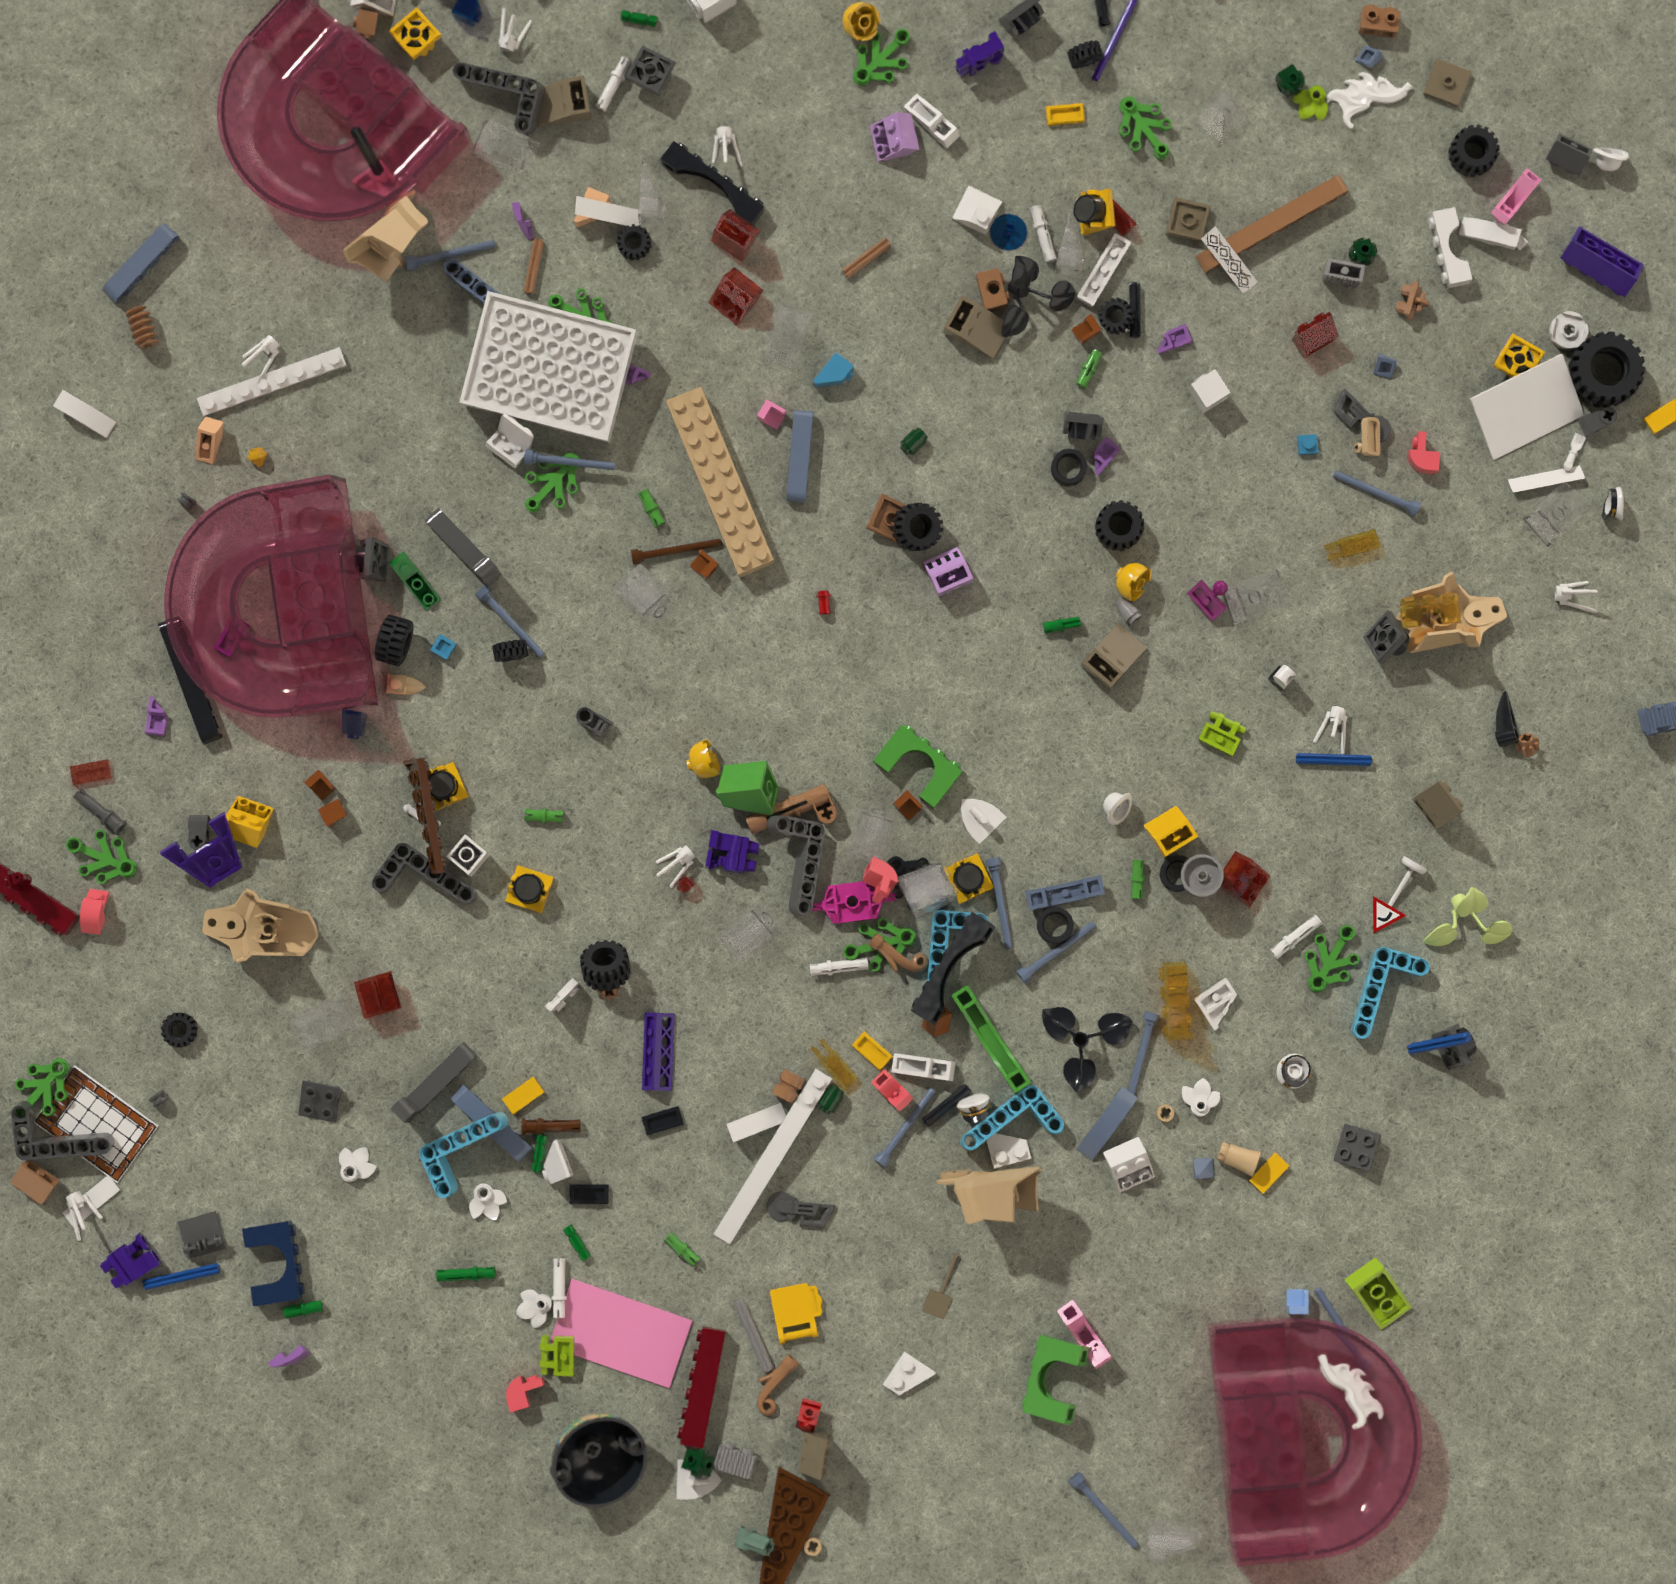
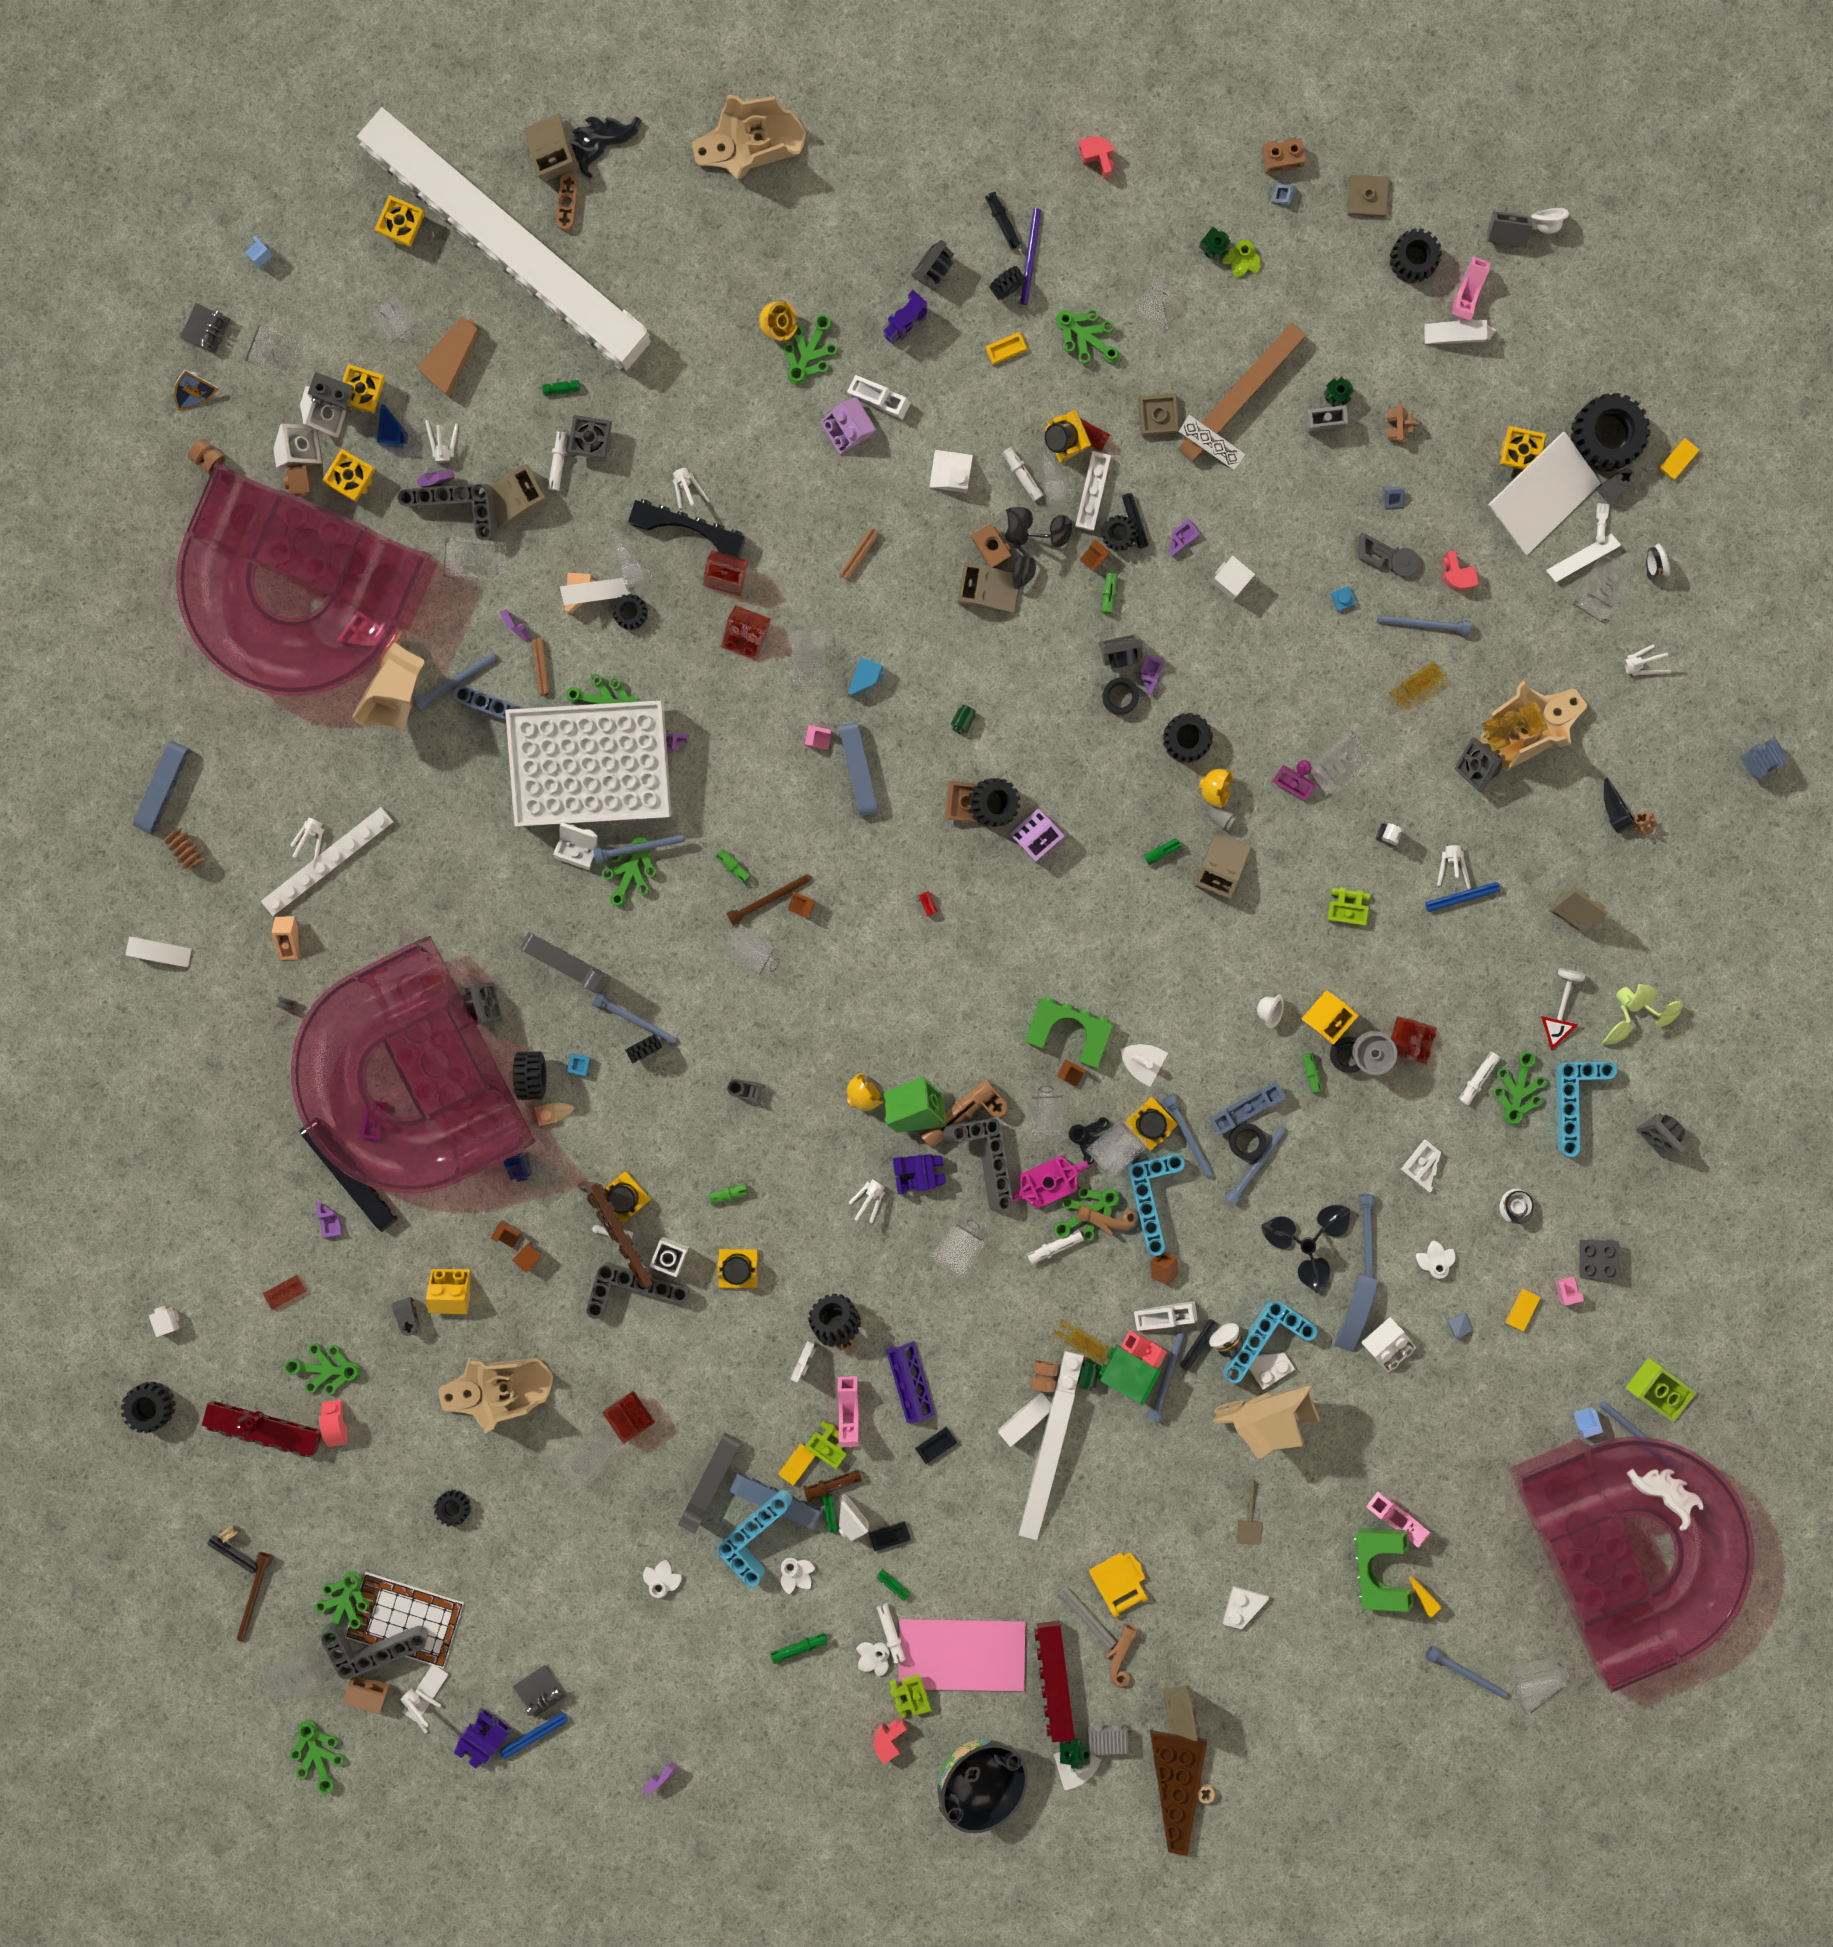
camera: 20 degrees left, 5 degrees up
(106, 817) = (314, 1330): dark grey pin -> none
(158, 1098) = (455, 1579): dark grey bush -> none
(212, 861) = (428, 1341): dark purple wing -> none
(257, 456) = (338, 938): yellow plate -> none
(288, 1286) = (615, 1670): dark blue arch -> none
(303, 1309) = (658, 1729): green axle -> none
(319, 1101) = (607, 1531): dark grey hinge -> none
(367, 151) = (341, 608): black axle -> none
(414, 581) = (529, 1009): green slope -> none
(494, 63) = (435, 478): none -> medium lavender slope
(556, 1090) = (824, 1448): none -> lime plate
(589, 1058) = (848, 1411): none -> bright pink arch
(682, 1249) = (994, 1559): bright green pin -> none
(685, 884) = (884, 1216): clear red plate -> none
(720, 482) = (790, 819): tan brick -> none
(753, 1541) = (1147, 1808): sand green piece -> none
(783, 1207) = (1075, 1488): dark grey piece -> none
(808, 1415) = (1160, 1669): red brick -> none
(869, 1109) = (1128, 1374): none -> green slope
(872, 1051) = (1112, 1316): yellow tile -> none
(882, 876) = (1070, 1151): coral brick -> none
(972, 934) = (1155, 1257): black arch -> none
(990, 1039) = (1221, 1270): bright green arch -> none
(1008, 232) = (988, 483): clear blue piece -> none
(1087, 1425) = (1429, 1604): none -> yellow slope
(1159, 1111) = (1402, 1286): tan bush -> none
(1176, 1001) = (1385, 1177): clear yellow wedge -> none
(1239, 1158) = (1491, 1306): tan plant -> none
(1315, 335) = (1316, 492): clear red slope -> none
(1318, 1168) = (1568, 1291): none -> bright pink panel
(1363, 92) = (1289, 232): white piece -> none
(1370, 437) = (1403, 574): tan piece -> none
(1439, 1043) = (1649, 1139): blue axle -> none
(1455, 271) = (1433, 381): white arch -> none
(1577, 325) = (1566, 414): white plate -> none
(1602, 262) = (1573, 326): dark purple slope -> none

